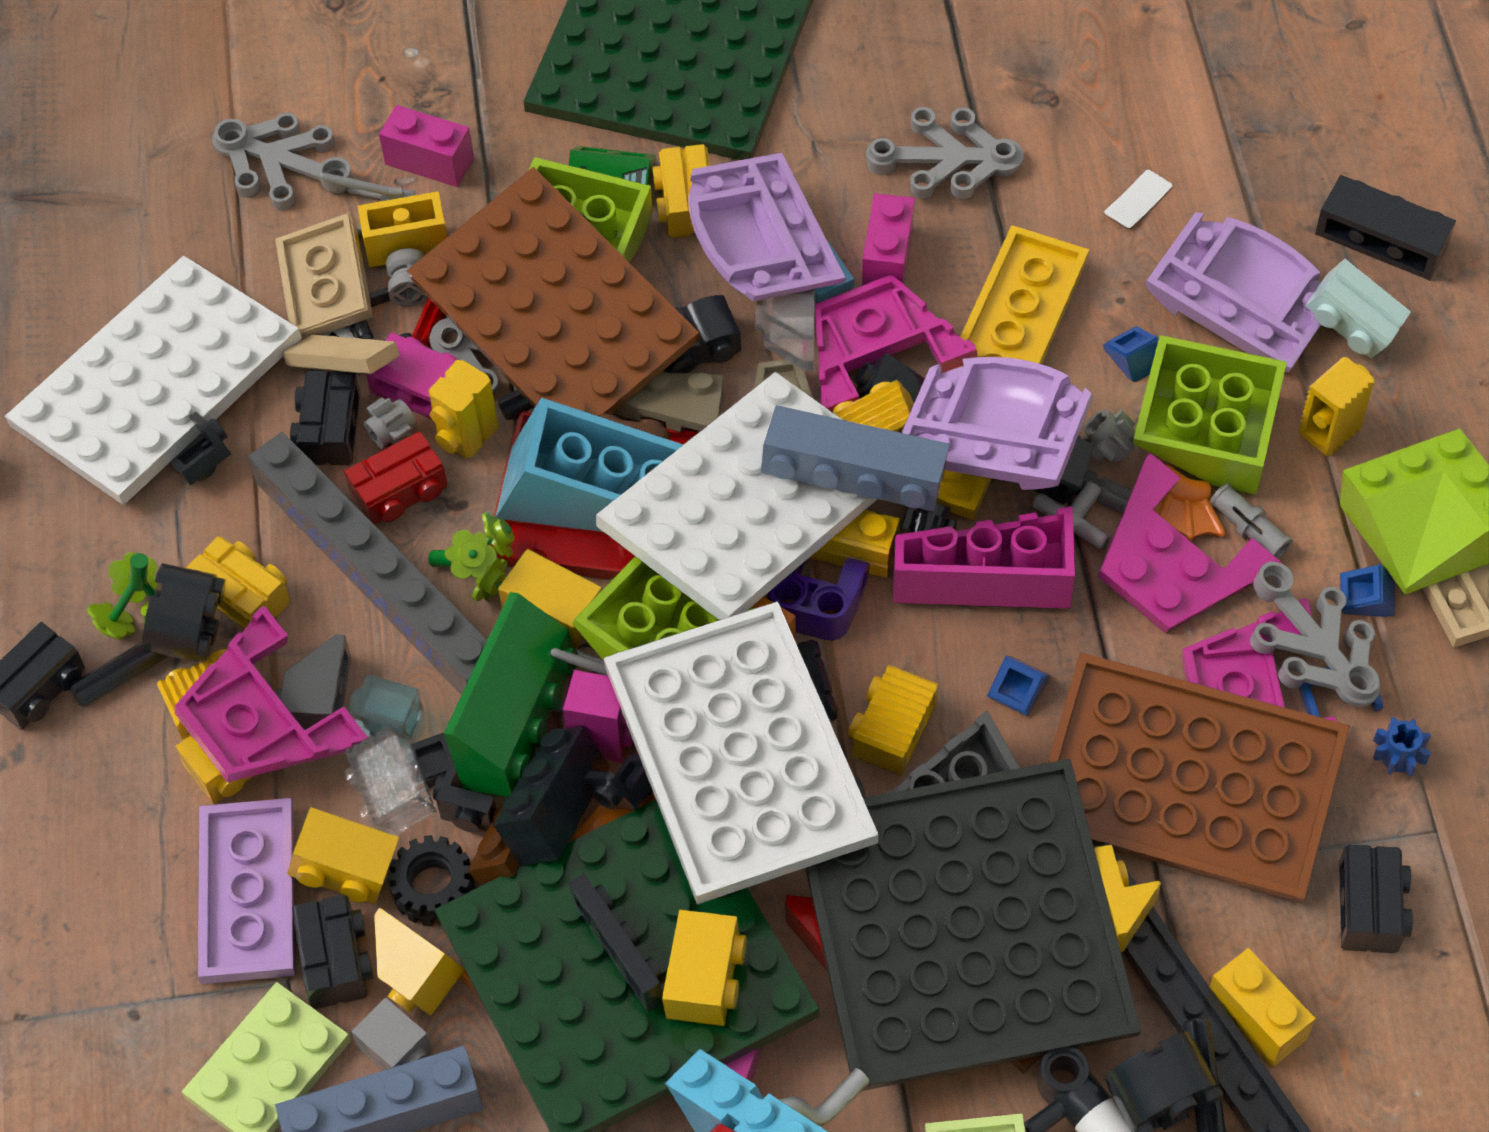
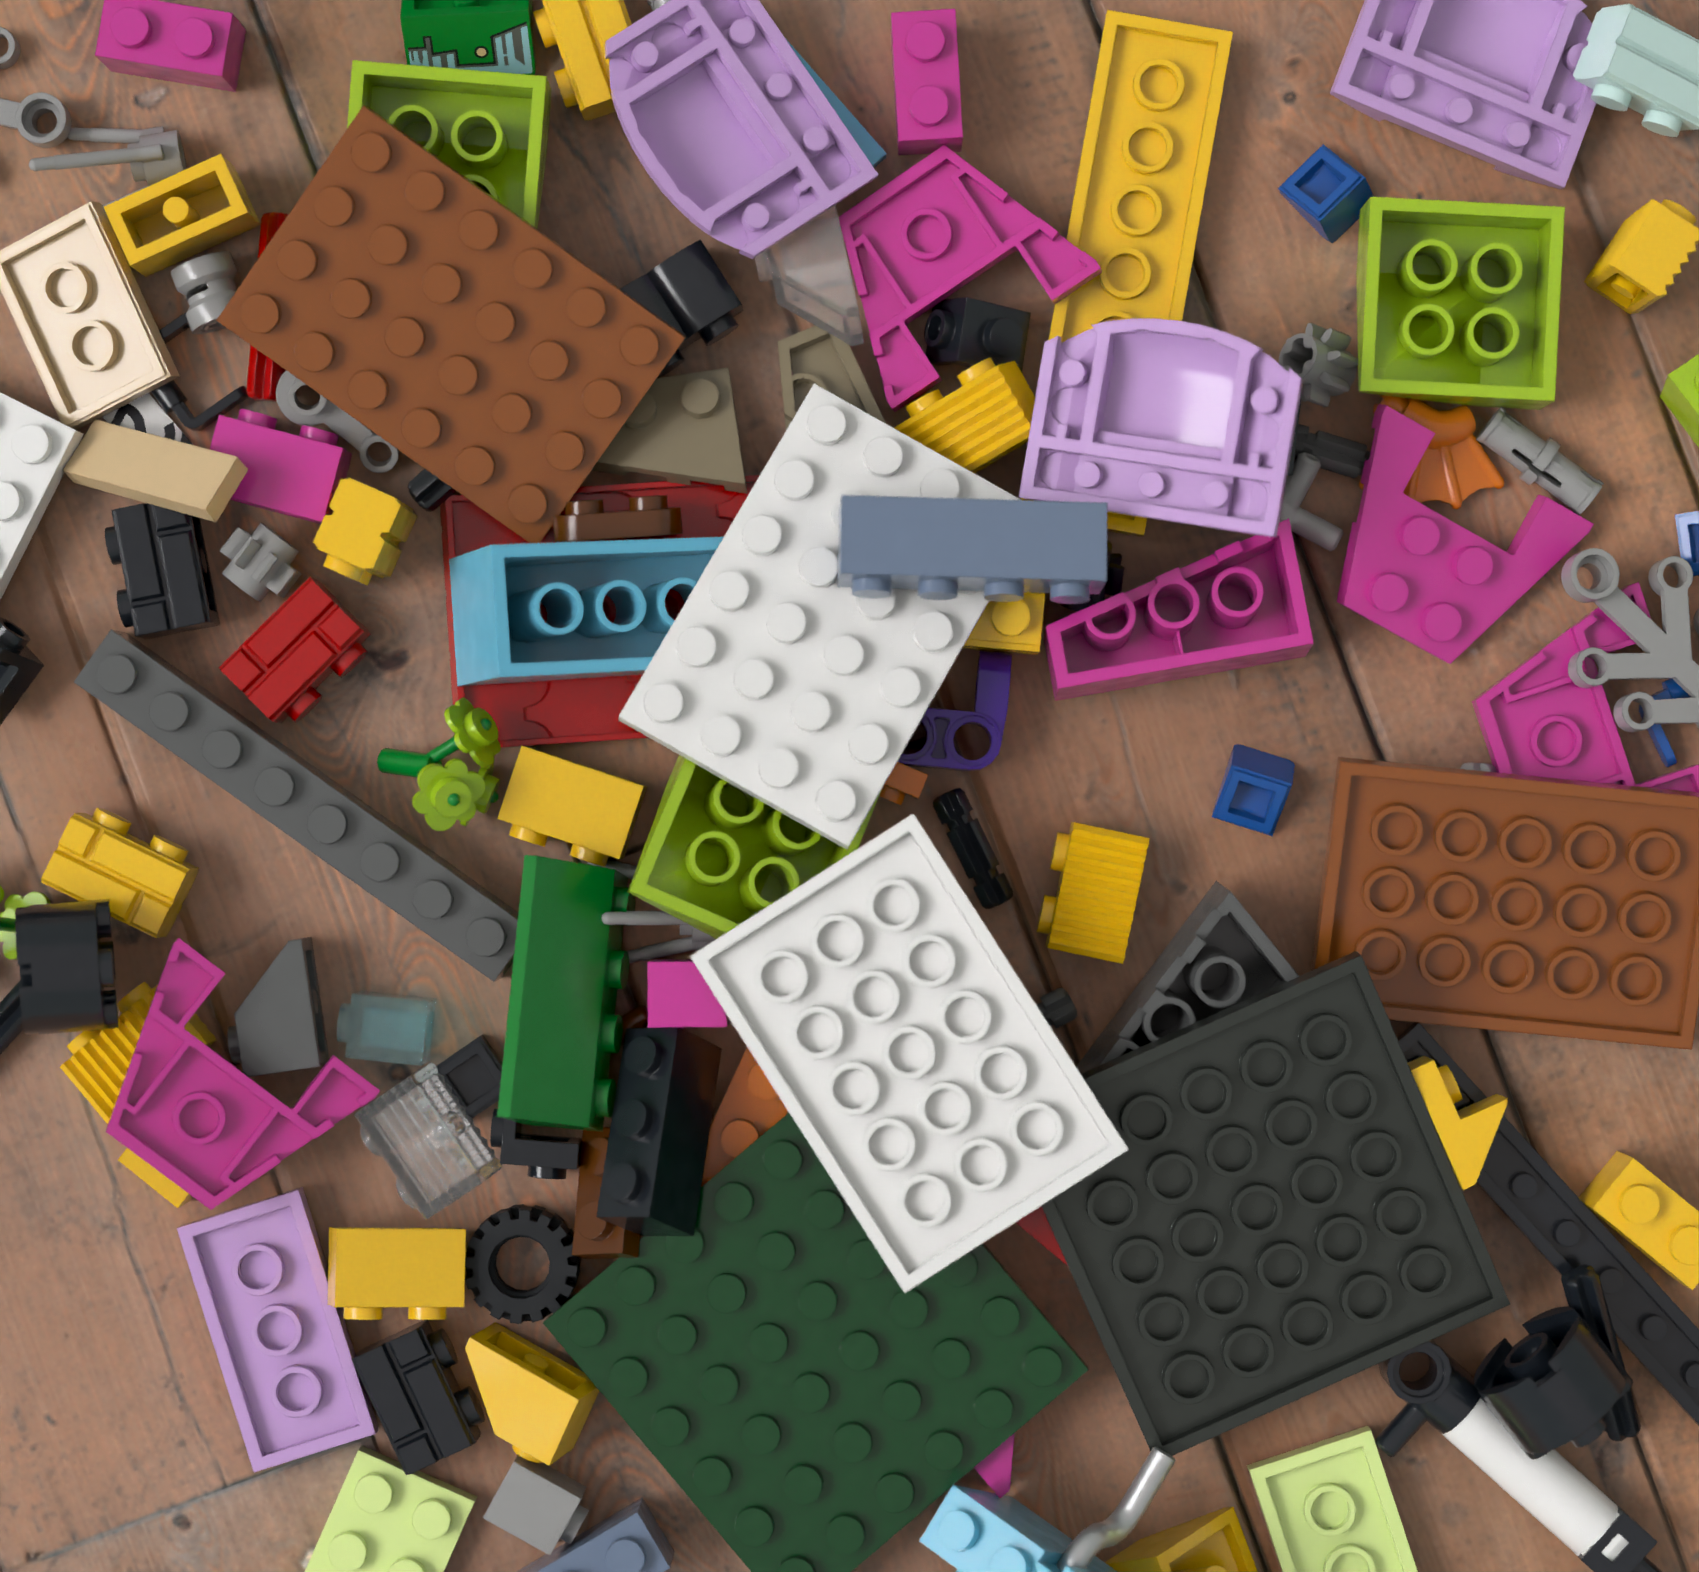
camera: 15 degrees left, 30 degrees up
(618, 941) = (808, 1349): black plate -> none
(623, 789) = (748, 1100): black bracket -> none
(702, 968) = (929, 1366): yellow brick -> none

